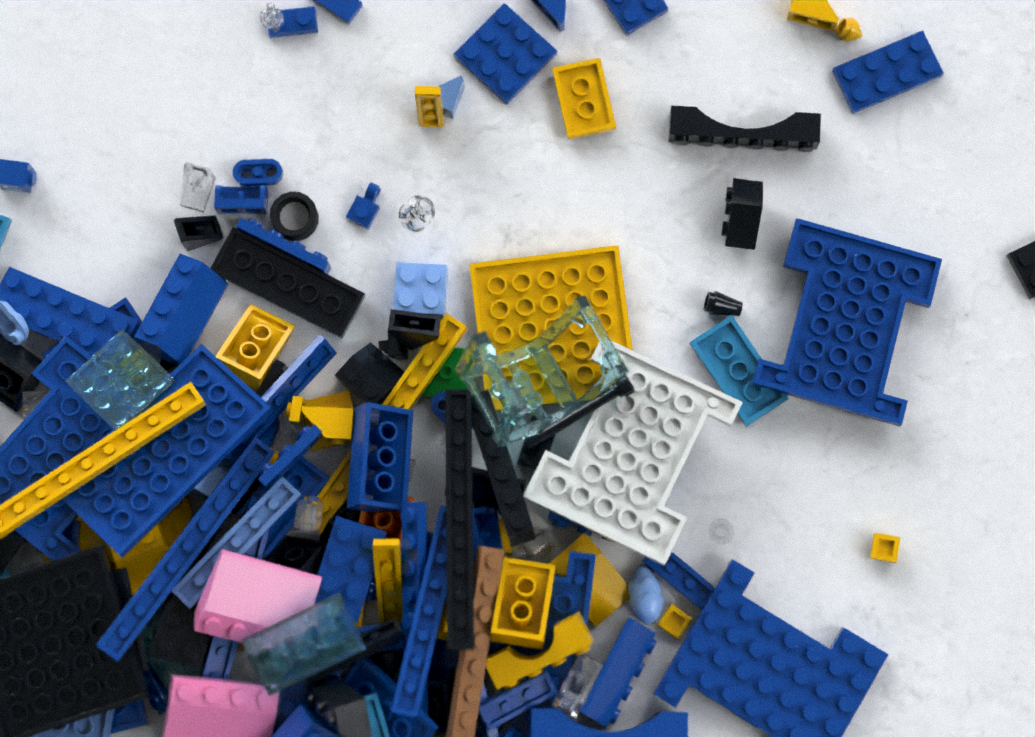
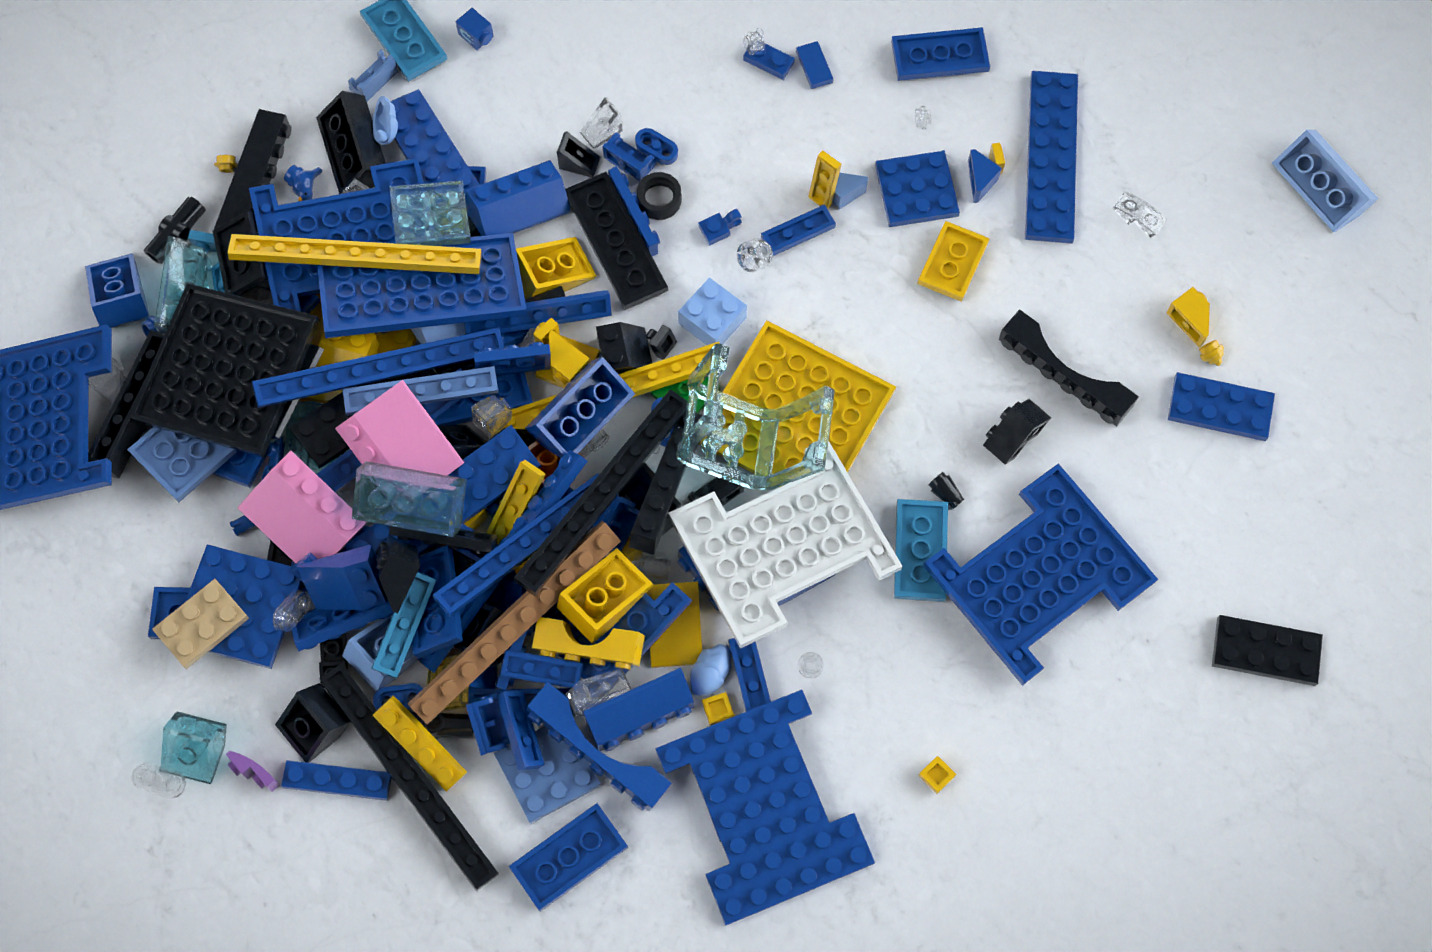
camera: 30 degrees right, 10 degrees down
(413, 328) = (683, 334): black slope -> none
(435, 162) = (799, 229): none -> blue plate
(621, 388) = (810, 484): black piece -> none

